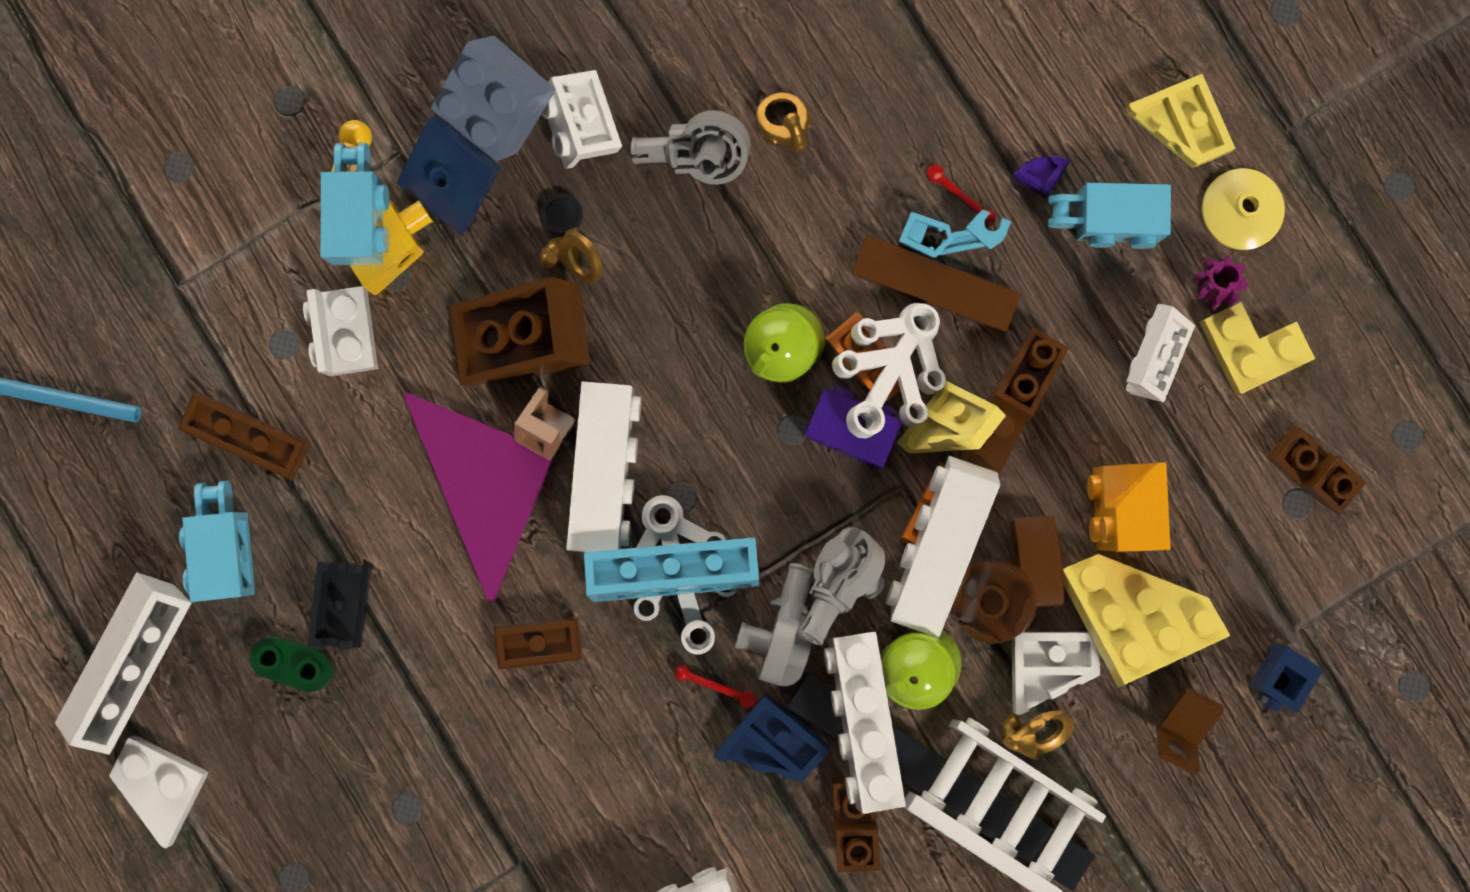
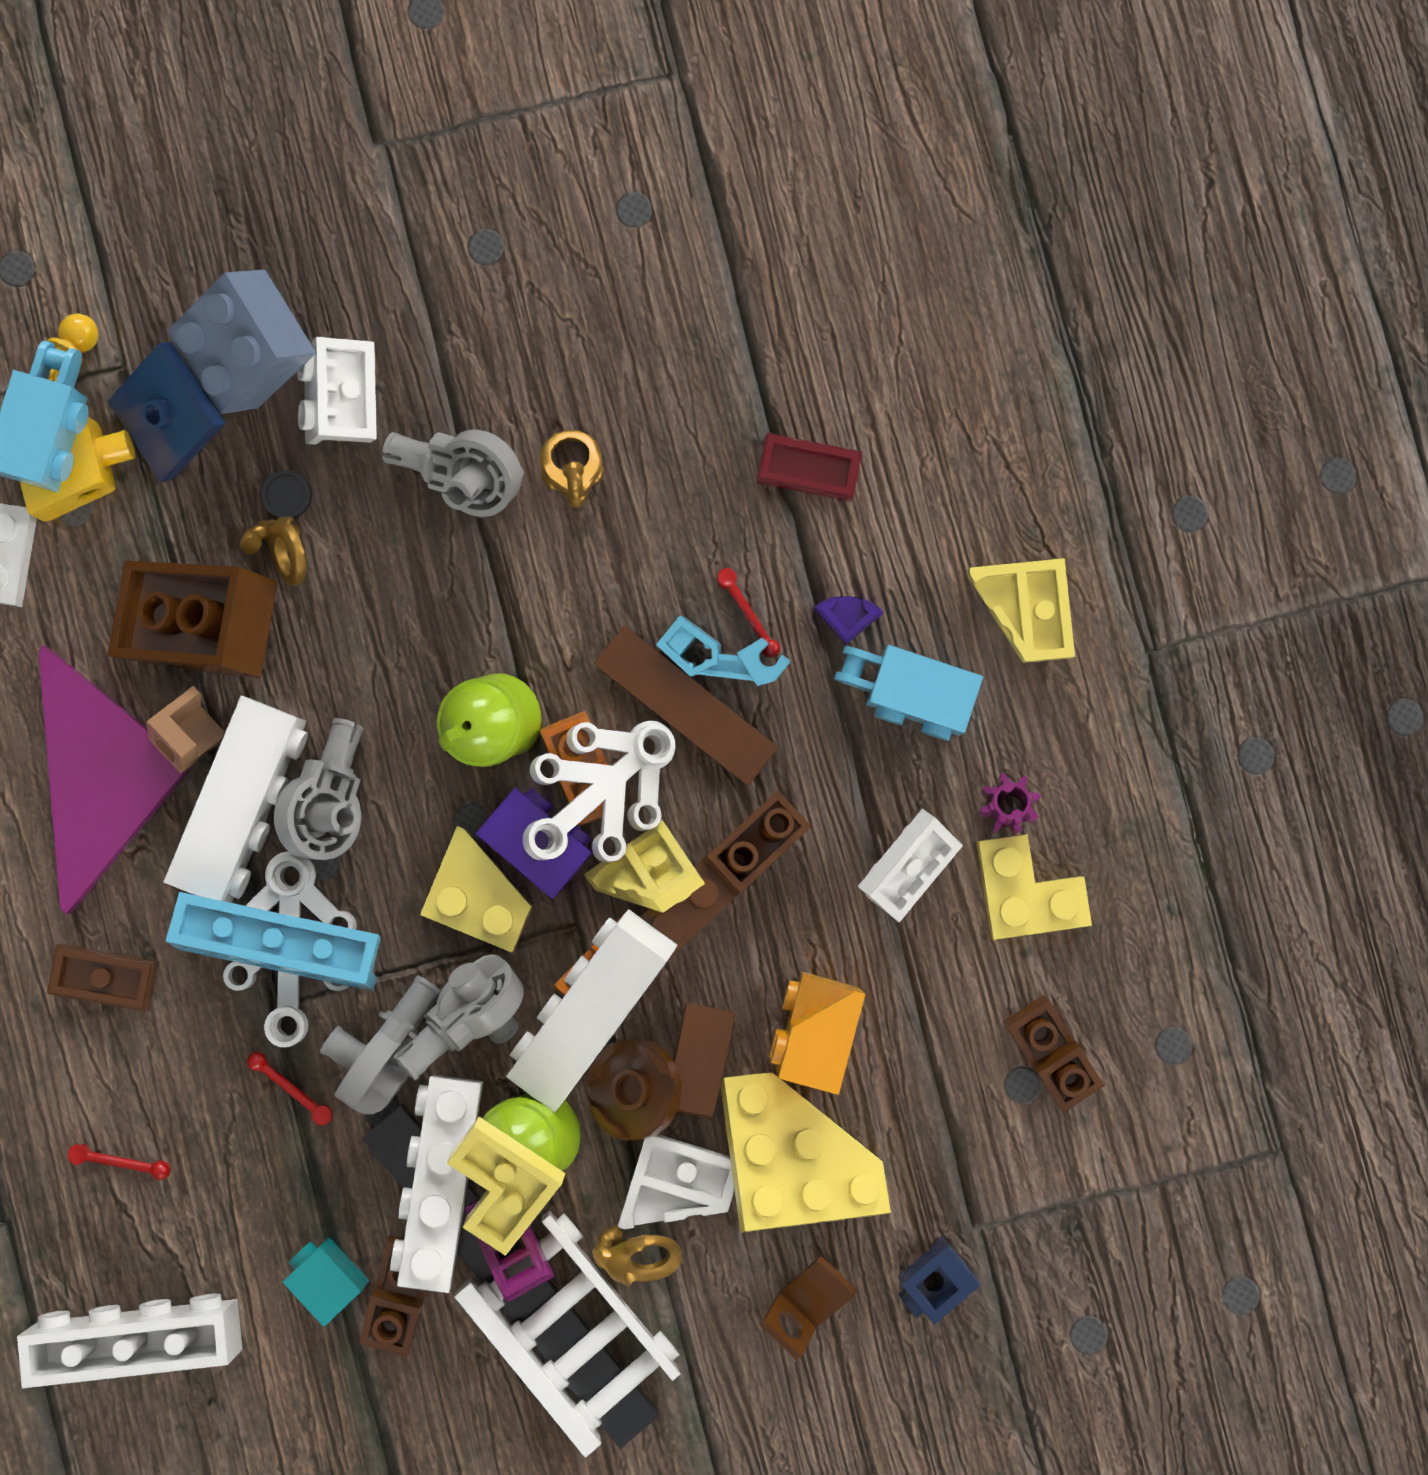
camera: 10 degrees right, 0 degrees up
(563, 789) = (81, 1153): none -> red hinge
(672, 445) = (323, 800): none -> light grey pin
(774, 742) = (335, 1173): dark blue wing -> none
(794, 830) = (324, 1280): none -> teal brick
(816, 486) = (476, 895): none -> light yellow wing
(934, 703) = (515, 1183): none -> light yellow plate
(960, 778) = (525, 1280): none -> magenta slope
(973, 65) = (809, 467): none -> dark red tile
(1225, 214) = (1043, 734): light yellow dish -> none

